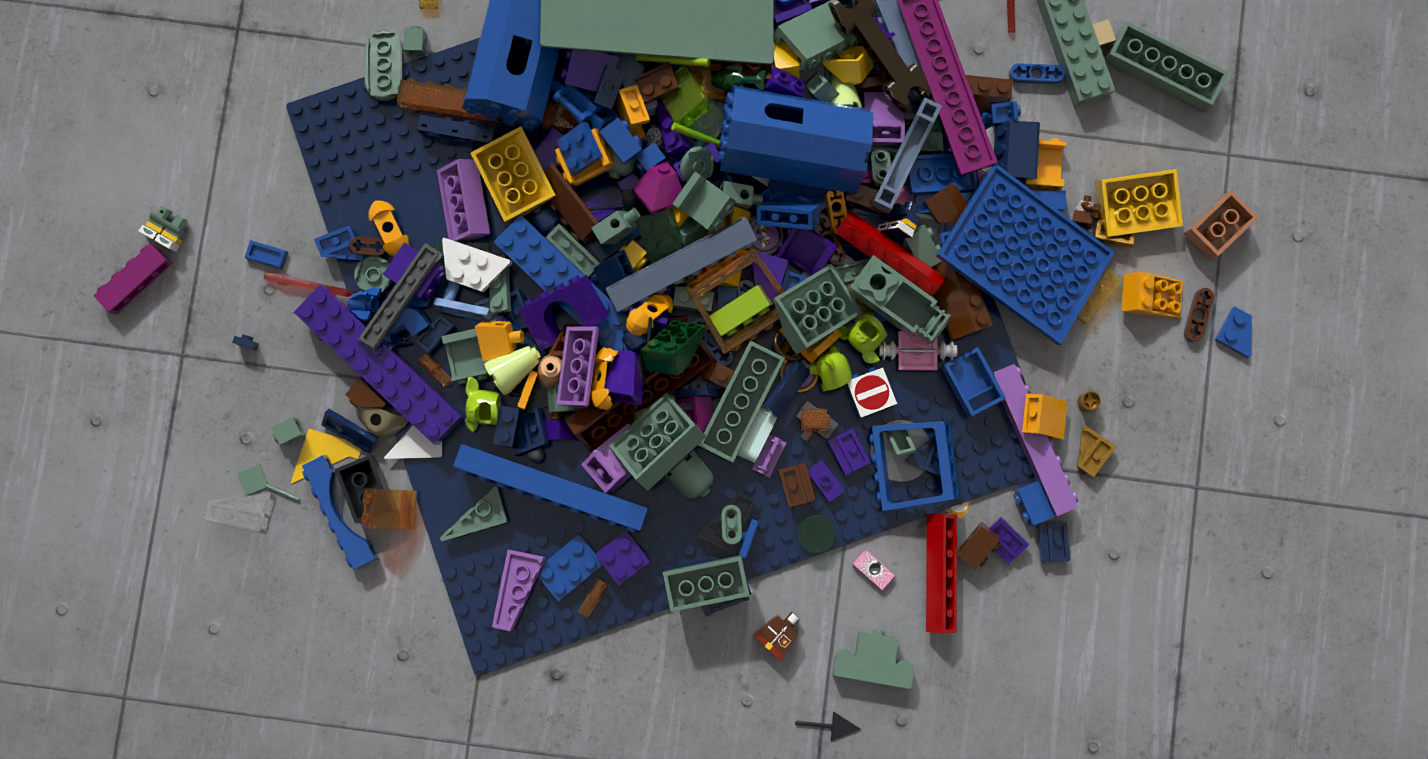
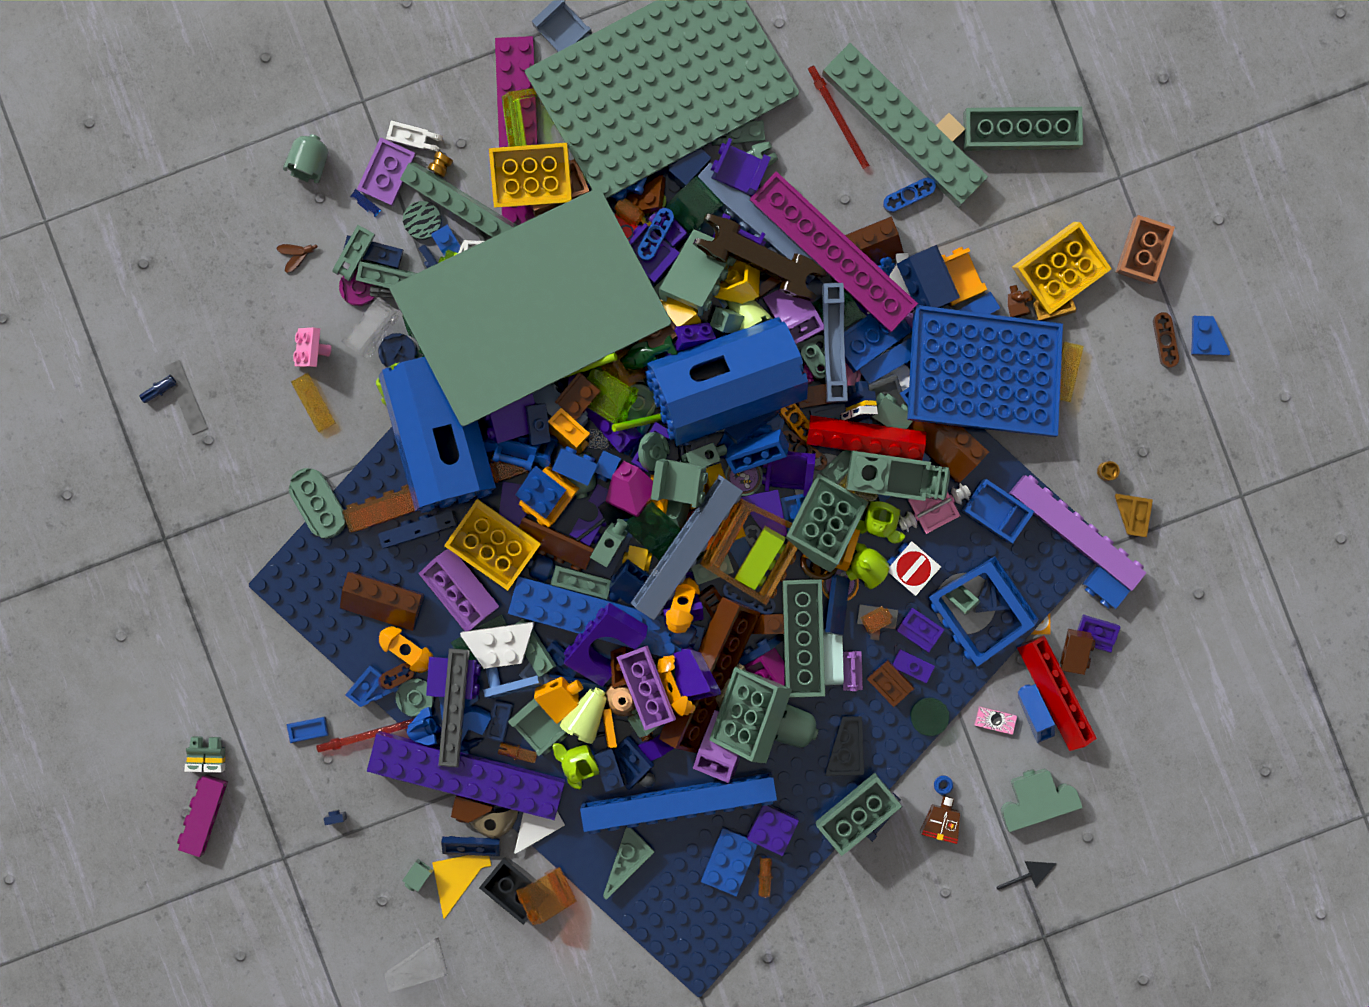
camera: 30 degrees left, 5 degrees up
(255, 480) = (410, 932): sand green piece -> none
(322, 477) = (535, 943): blue arch -> none
(391, 175) = (381, 600): none -> reddish brown slope
(415, 41) = (332, 466): sand green brick -> none
(516, 584) = (692, 901): medium lavender wing -> none
(644, 372) = (702, 650): black piece -> none
(673, 347) = (721, 627): dark green slope -> none
(731, 524) = (852, 749): sand green plate -> none
(747, 538) = (871, 753): blue plate -> none
(800, 607) = (943, 791): none -> blue plate
(913, 582) = (1036, 713): none -> blue slope
(946, 204) = (892, 363): reddish brown slope -> none
(1005, 112) = (899, 250): blue bracket -> none
(1044, 416) = (1076, 508): light orange panel -> none
(1053, 542) = (1140, 612): dark blue plate -> none
(1151, 295) = (1116, 345): light orange slope -> none

